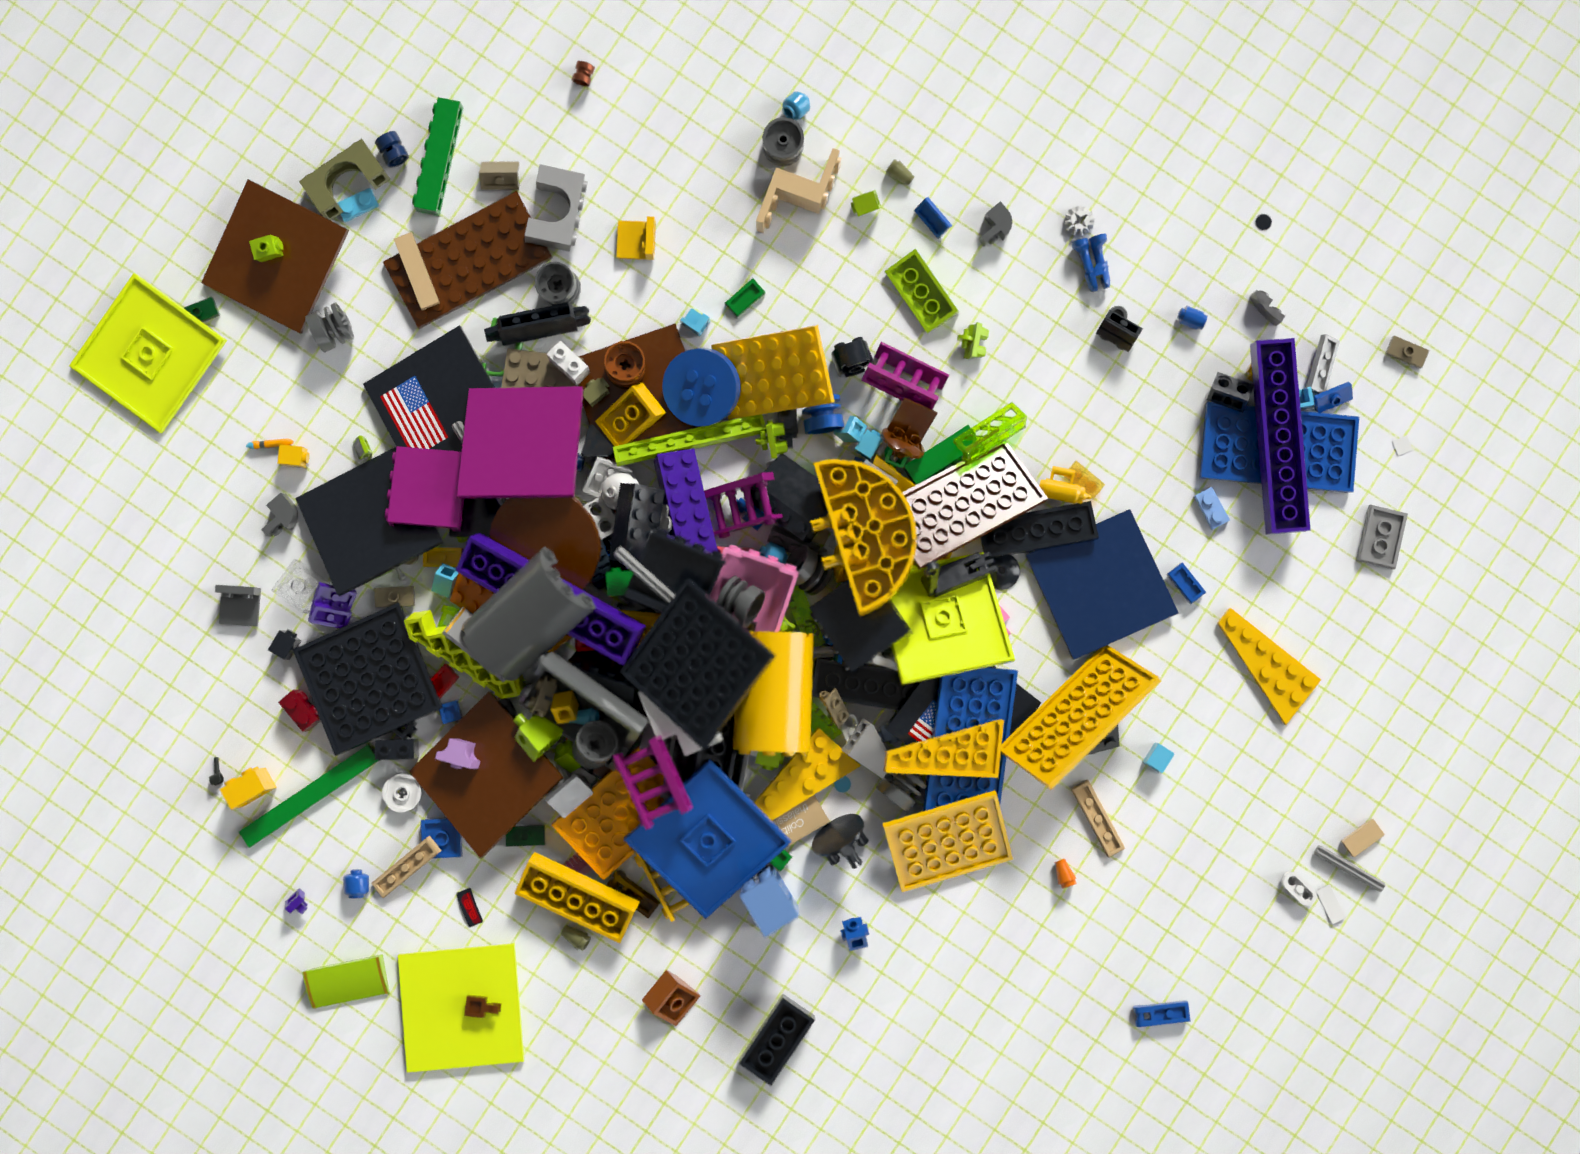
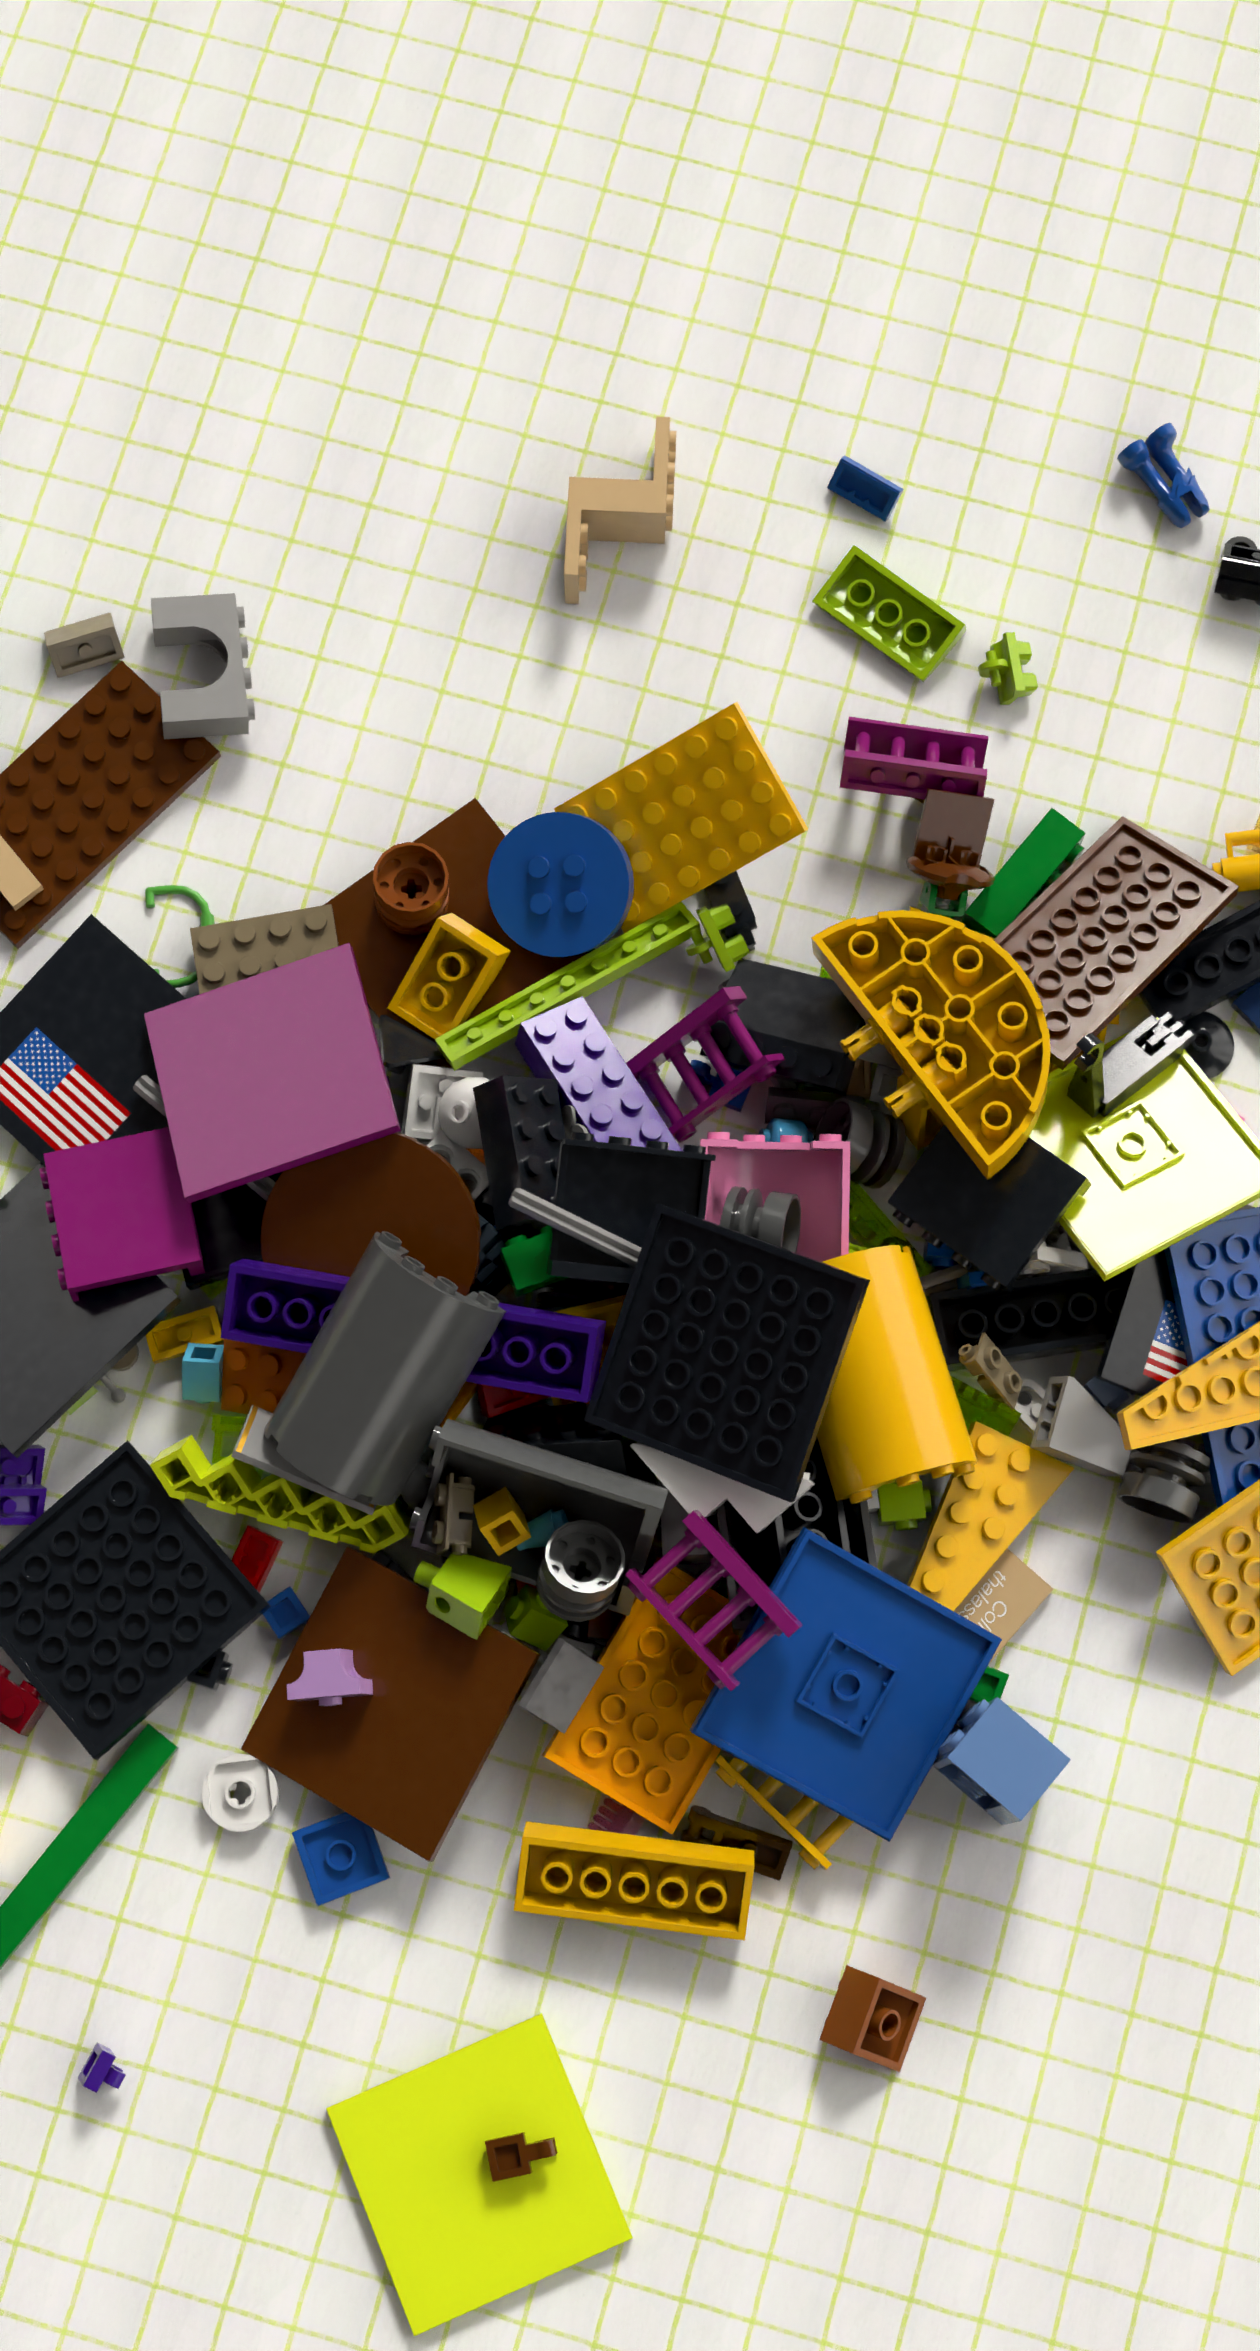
camera: 15 degrees left, 10 degrees down
(346, 981) = (242, 2195): lime slope -> none
(356, 884) = (205, 1996): blue head -> none
(391, 595) = (107, 1435): dark tan plate -> none
(396, 749) = (205, 1713): black brick -> none
(406, 866) = (291, 1931): tan tile -> none
(469, 907) = (434, 1973): sticker -> none
(526, 836) = (498, 1800): dark green plate -> none
(538, 323) = (230, 870): black hinge -> none
(556, 274) = (239, 775): dark grey wheel -> none
(568, 363) = (309, 915): white brick -> none
(576, 937) = (656, 1962): olive cone -> none
(583, 73) = (178, 433): copper wheel -> none
(595, 391) = (374, 952): olive brick -> none
(636, 239) = (361, 677): yellow bracket -> none
(695, 321) = (510, 786): medium azure panel -> none
(745, 297) = (583, 719): green tile -> none
(776, 1039) = (1100, 2030): black brick -> none
(783, 141) = (563, 438): dark grey wheel -> none
(796, 105) = (565, 377): dark azure head -> none
(823, 418) = (793, 874): blue wheel -> none
(839, 837) = (1088, 1602): black piece -> none
(843, 784) = (1052, 1515): medium azure sticker -> none
(851, 357) = (807, 757): black brick -> none
(853, 430) = (853, 884): medium azure panel -> none
(855, 933) = (1172, 1772): blue brick -> none
(865, 203) = (741, 497): lime brick -> none
(869, 444) = (888, 892): medium azure brick -> none
(900, 172) = (781, 432): olive cone -> none
(995, 434) = (1106, 812): clear neon green fence -> none
(1001, 223) = (983, 460): dark grey brick -> none
(1079, 229) = (1119, 434): white gear -> none

